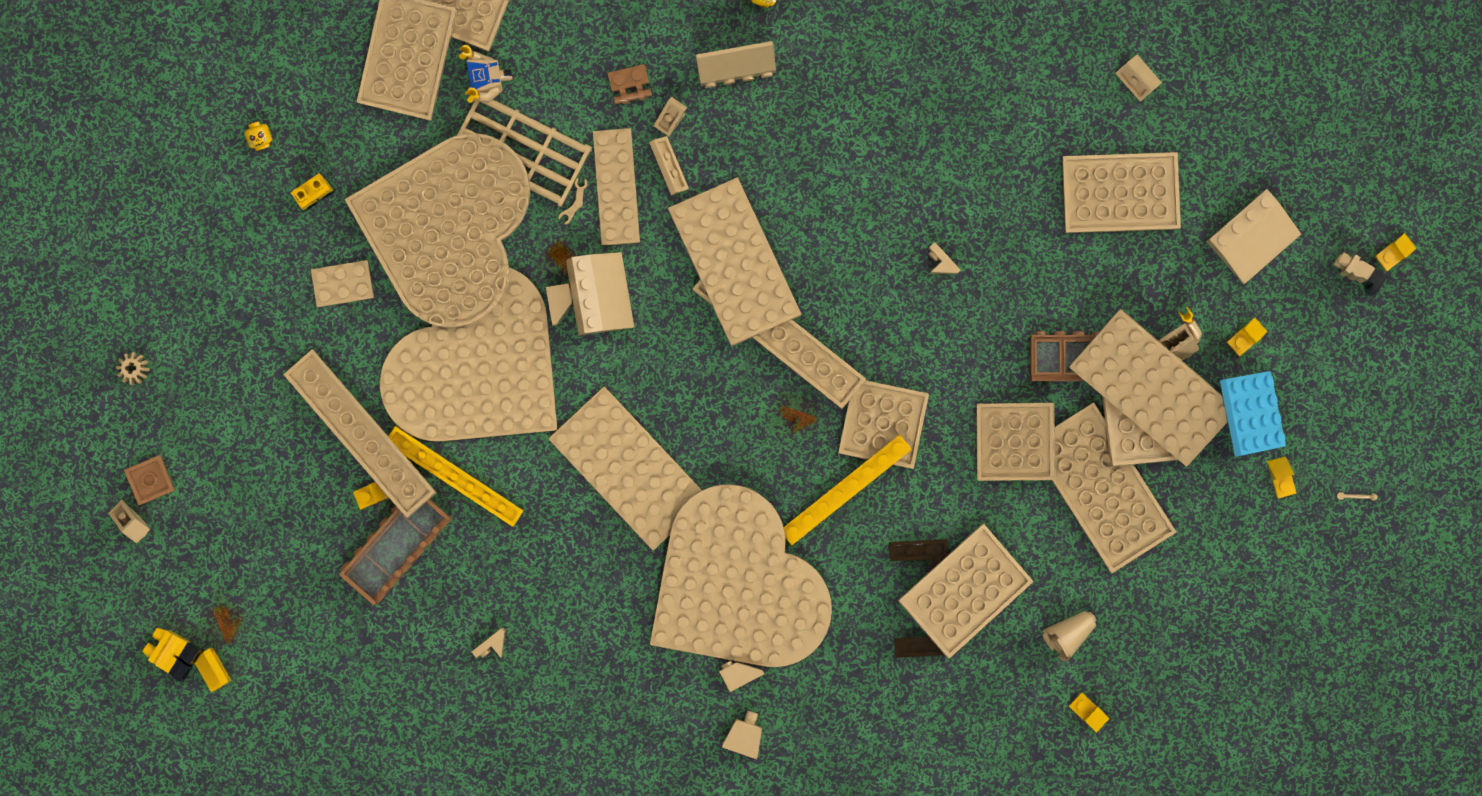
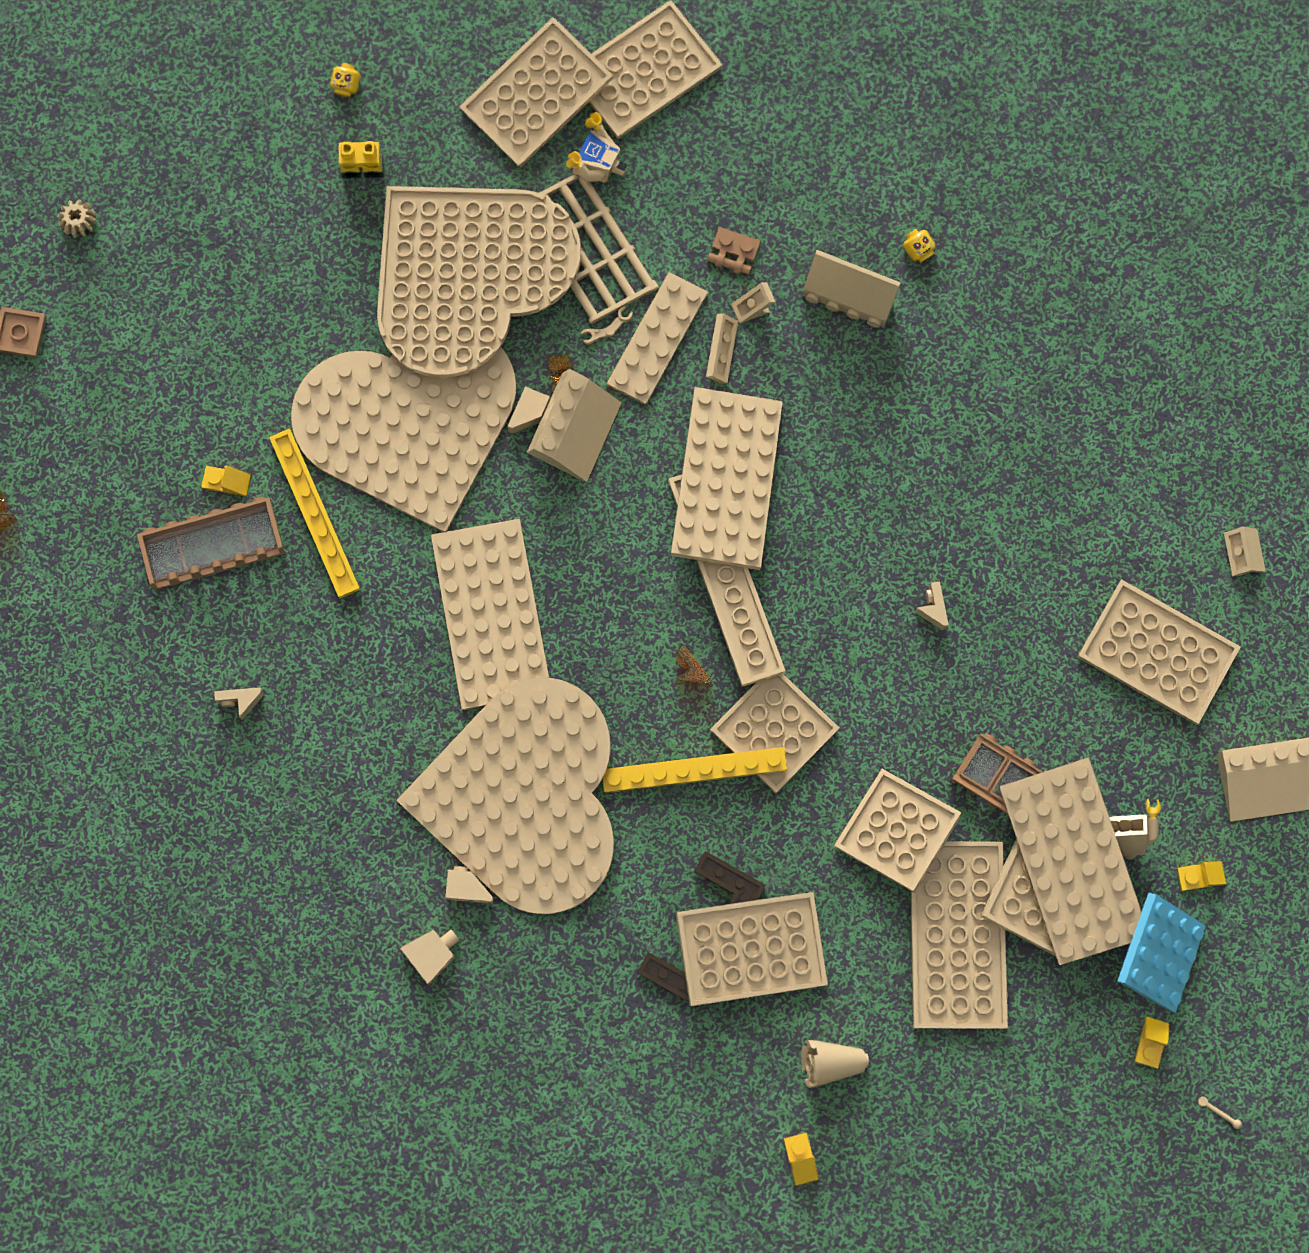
camera: 30 degrees right, 10 degrees down
(342, 283) = (331, 265): tan plate -> none
(360, 433) = (250, 414): tan plate -> none

